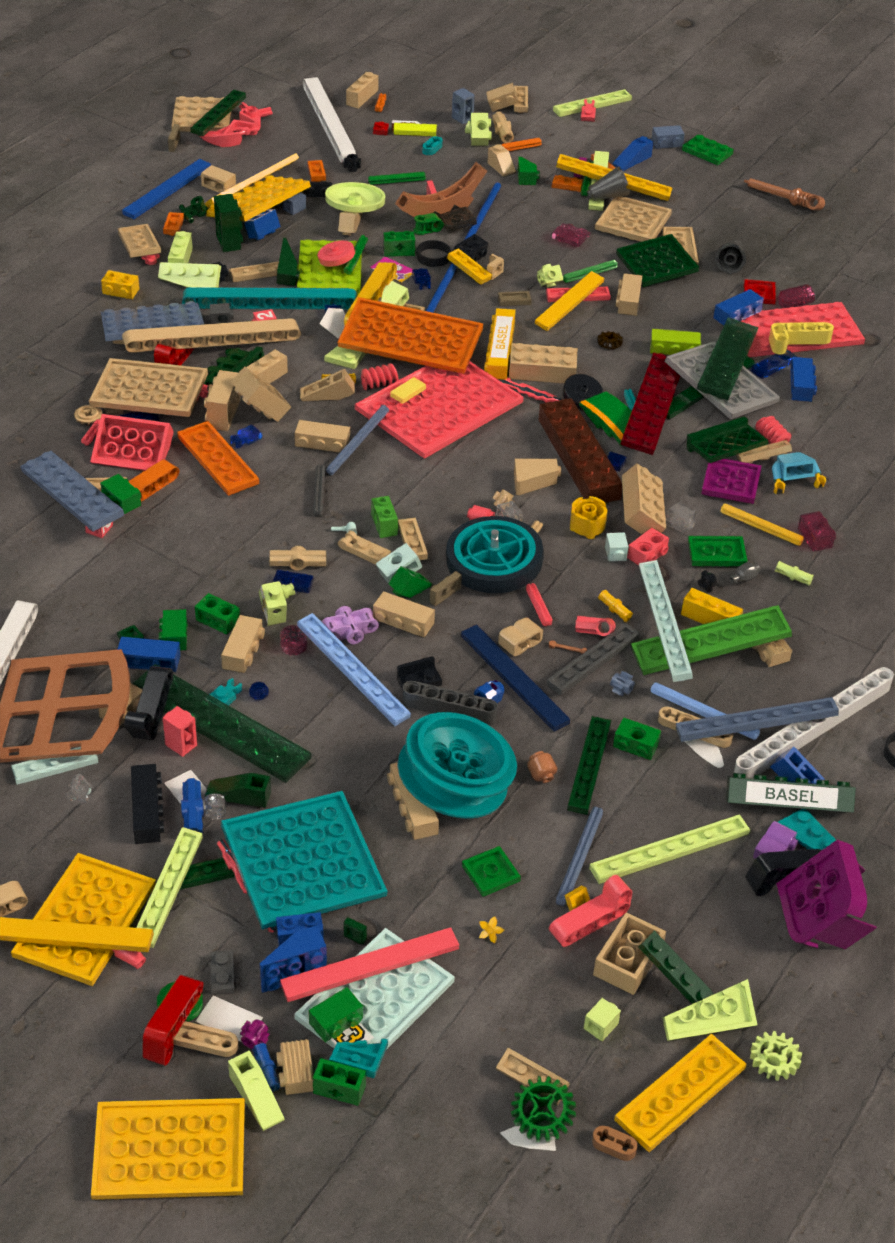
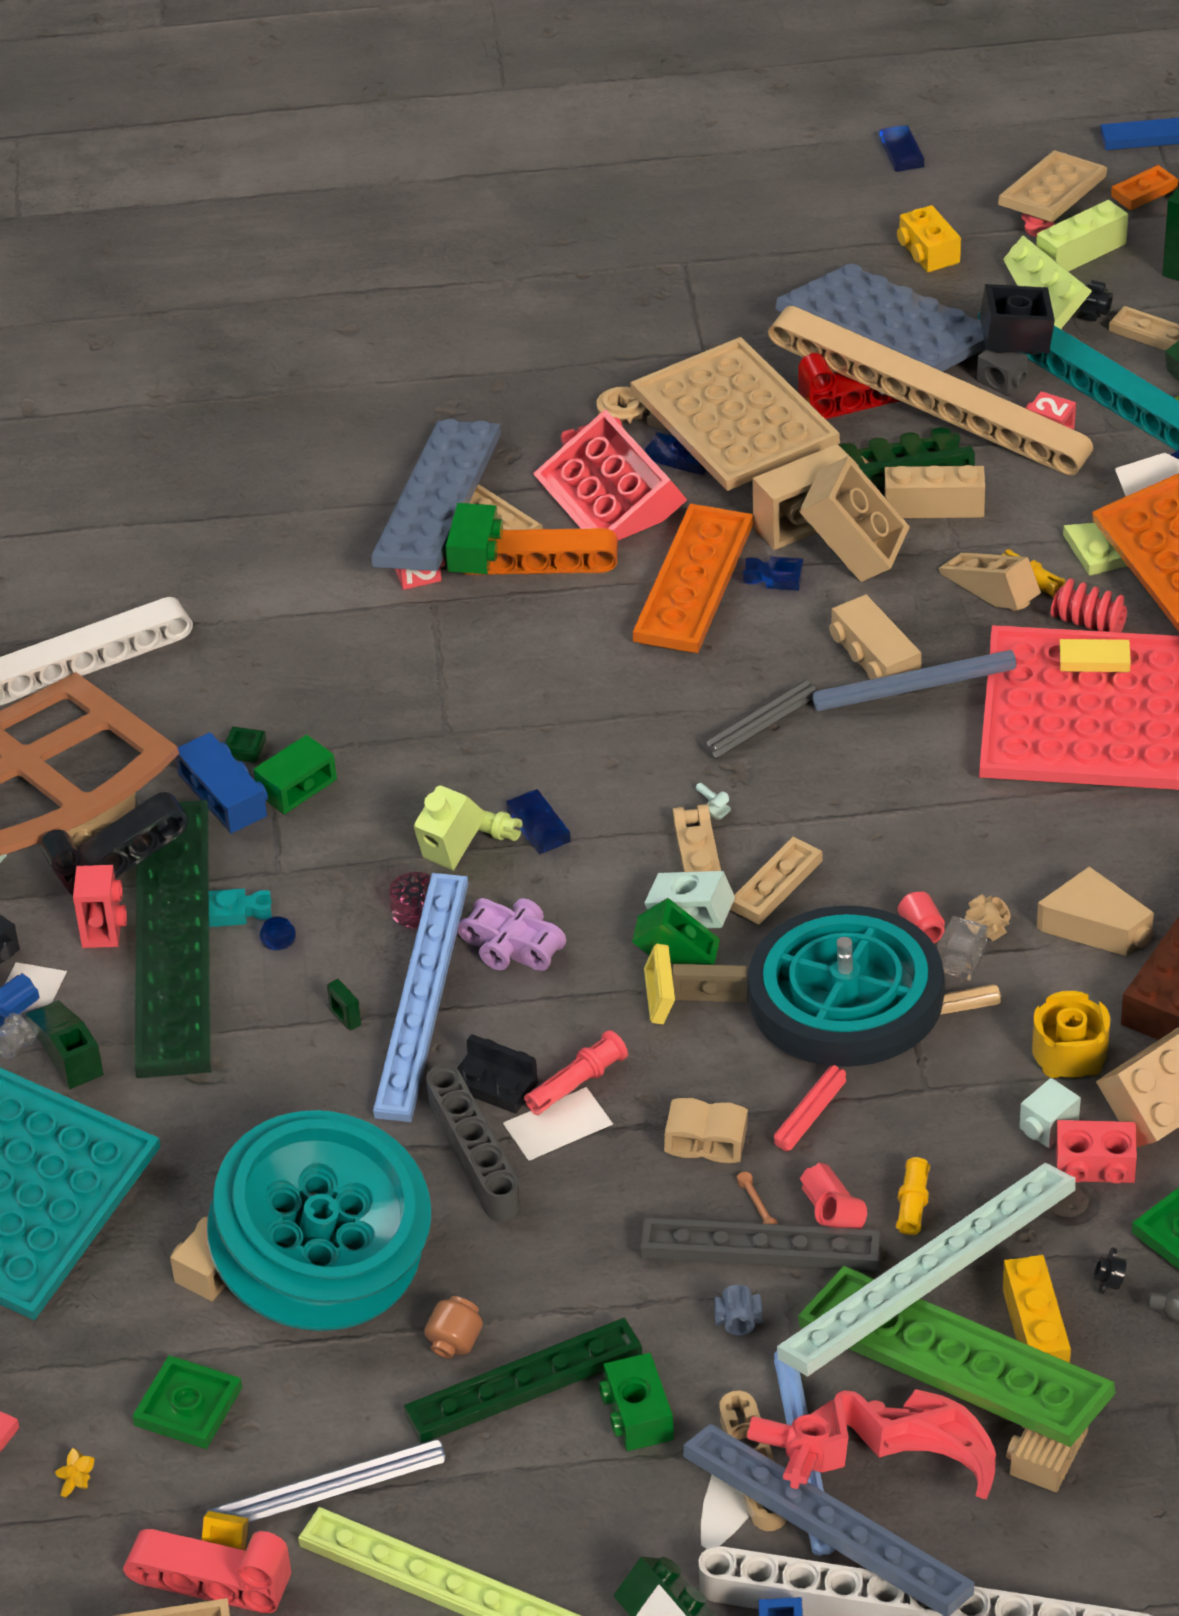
camera: 55 degrees right, 0 degrees up
(53, 259) = (901, 148): none -> clear blue tile
(213, 289) = (1017, 318): none -> black brick
(217, 613) = (376, 791): green brick -> none
(242, 644) = (345, 854): tan brick -> none
(298, 558) = (585, 793): tan piece -> none
(327, 694) = (343, 1004): none -> dark green tile
(384, 516) = (780, 816): bright green brick -> none
(403, 614) = (598, 975): tan brick -> none
(429, 599) = (659, 984): none -> light yellow tile
(446, 647) = (588, 1064): none -> coral pin
(462, 675) = (559, 1125): none -> white sticker
(491, 690) = (548, 1174): blue rock -> none
(515, 678) = (617, 1184): dark blue tile -> none
(717, 688) = (924, 1424): none -> coral piece

